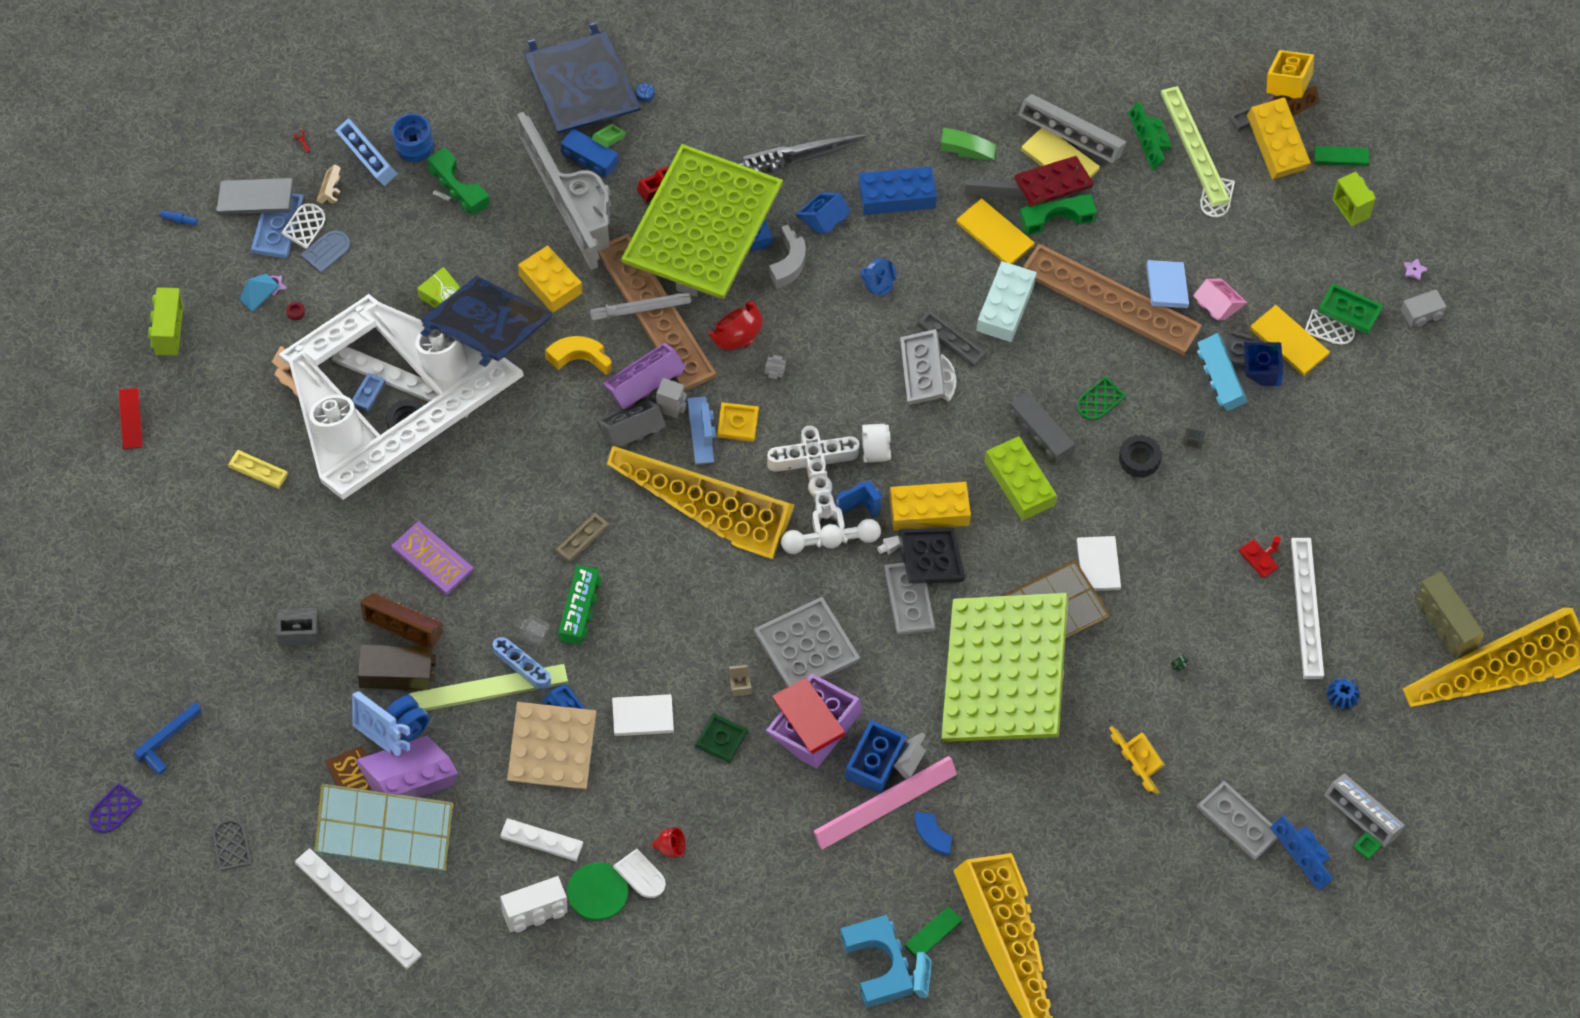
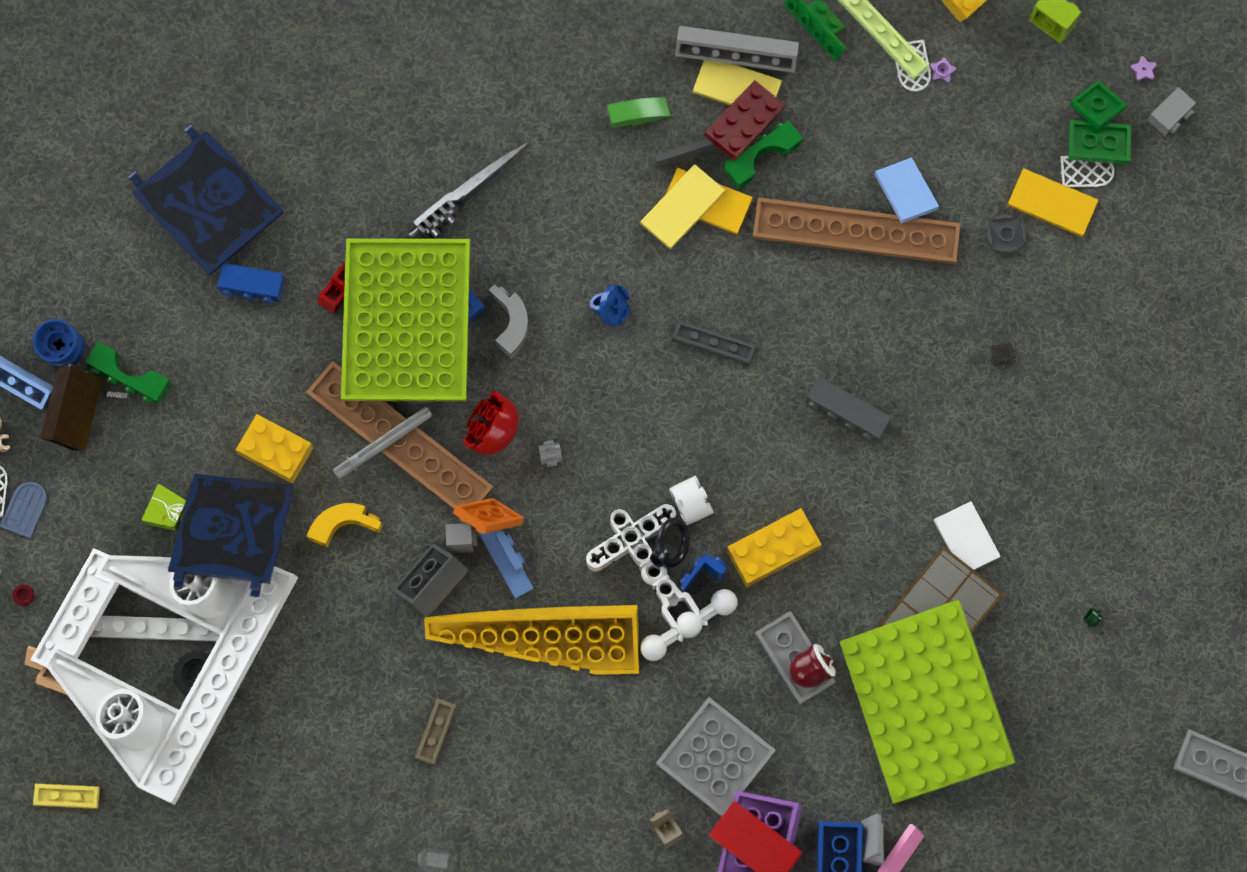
camera: 20 degrees left, 15 degrees up
(368, 392) = (142, 659): medium blue plate -> none
(400, 187) = (71, 408): none -> dark brown brick
(432, 558) = (292, 820): medium lavender tile -> none
(579, 605) = (467, 812): green brick -> none
(582, 209) = (265, 344): light grey piece -> none
(608, 135) = (263, 254): bright green tile -> none
(644, 376) = (420, 522): medium lavender slope -> none
(645, 92) = (277, 184): blue tile -> none
(702, 387) = (488, 515): none -> orange plate
(737, 422) = (538, 531): yellow tile -> none
(824, 212) = (523, 251): blue slope -> none
(830, 470) = (660, 555): none -> black piece
(889, 545) = (754, 602): white piece -> none
(897, 190) = (588, 195): blue brick -> none
(919, 603) = (811, 667): none -> dark red piece
(922, 367) = (700, 390): light grey plate -> none
(931, 555) = (798, 603): black plate -> none
(949, 378) = (726, 389): white tile -> none
(972, 227) = (682, 206): none -> light yellow tile
(1006, 301) = (753, 279): light aqua brick -> none
(1020, 478) = (851, 476): lime brick -> none
(1086, 402) = (901, 330): green window -> none
(1140, 442) = (966, 385): black tyre -> none
(1142, 755) = (1098, 738): yellow bracket -> none
(1219, 298) = (965, 185): bright pink slope -> none
(1222, 372) = (1003, 270): medium azure brick -> none
(1240, 204) = (943, 64): none -> lavender plate
(1260, 558) = (1123, 464): red plate -> none
(1264, 362) = (1041, 242): clear blue slope -> none
(1307, 608) = (1192, 502): white plate -> none
(1362, 280) = (1098, 105): none -> green tile

